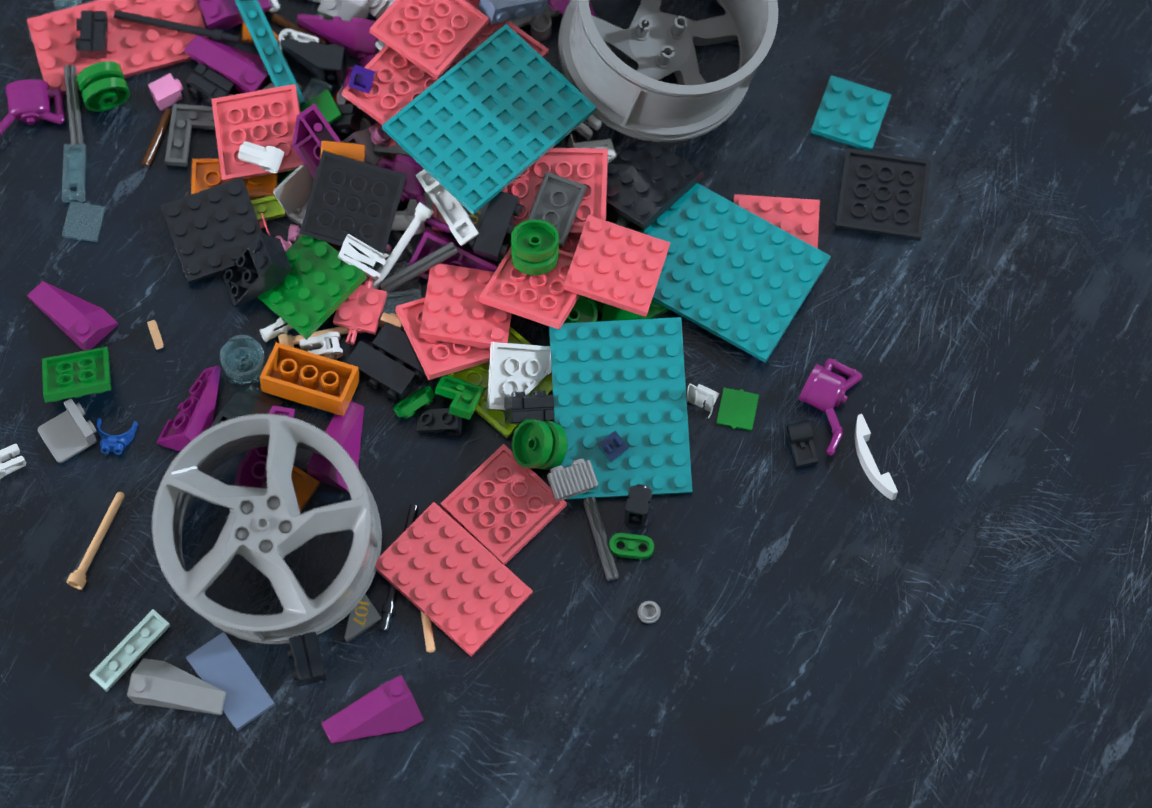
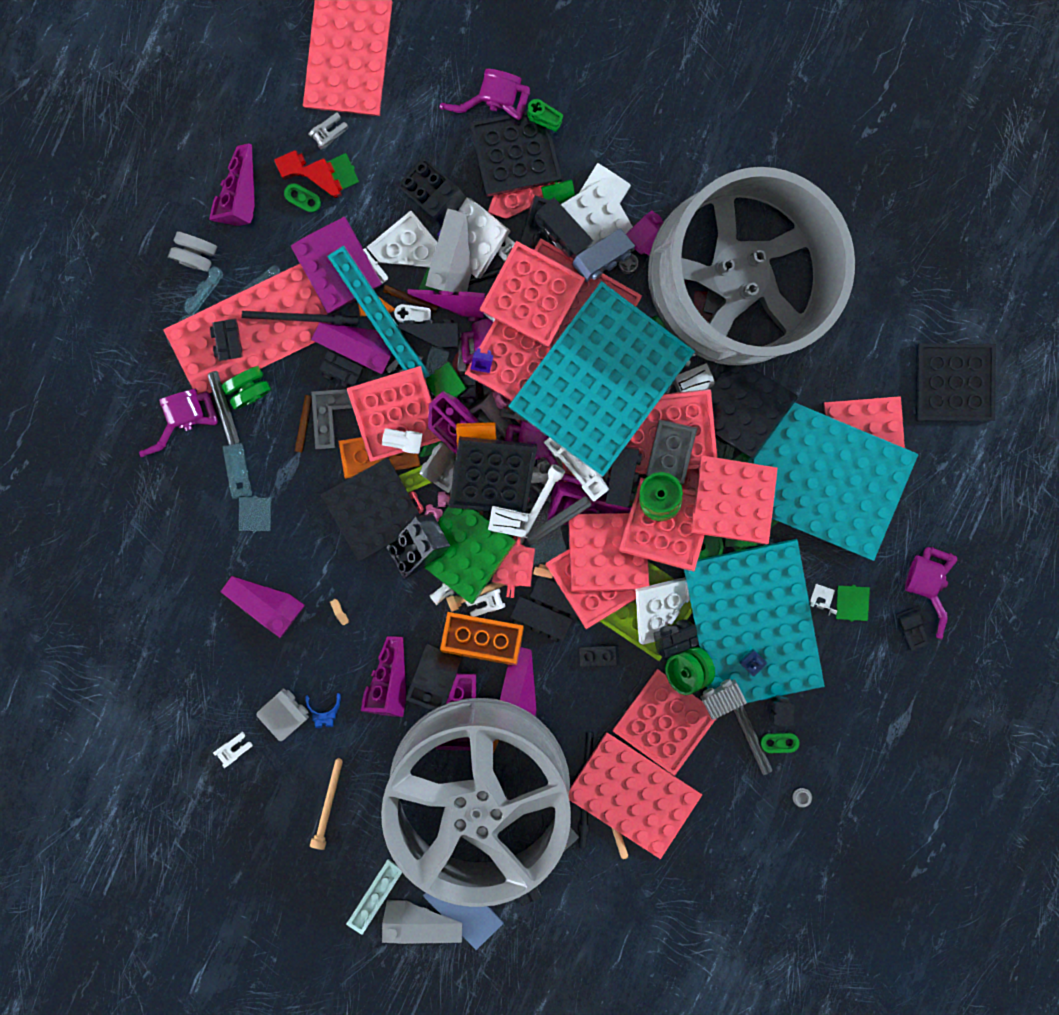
camera: 10 degrees left, 20 degrees up
(76, 374) = (280, 665): green plate -> none
(166, 91) = (302, 379): bright pink brick -> none
(231, 358) = (415, 637): clear light blue brick -> none
(377, 713) = (591, 918): magenta wedge -> none
(421, 397) = (574, 641): green plate -> none
(464, 395) = (619, 633): green plate -> none
(851, 113) = (918, 305): teal plate -> none
(882, 482) = (962, 614): white slope -> none

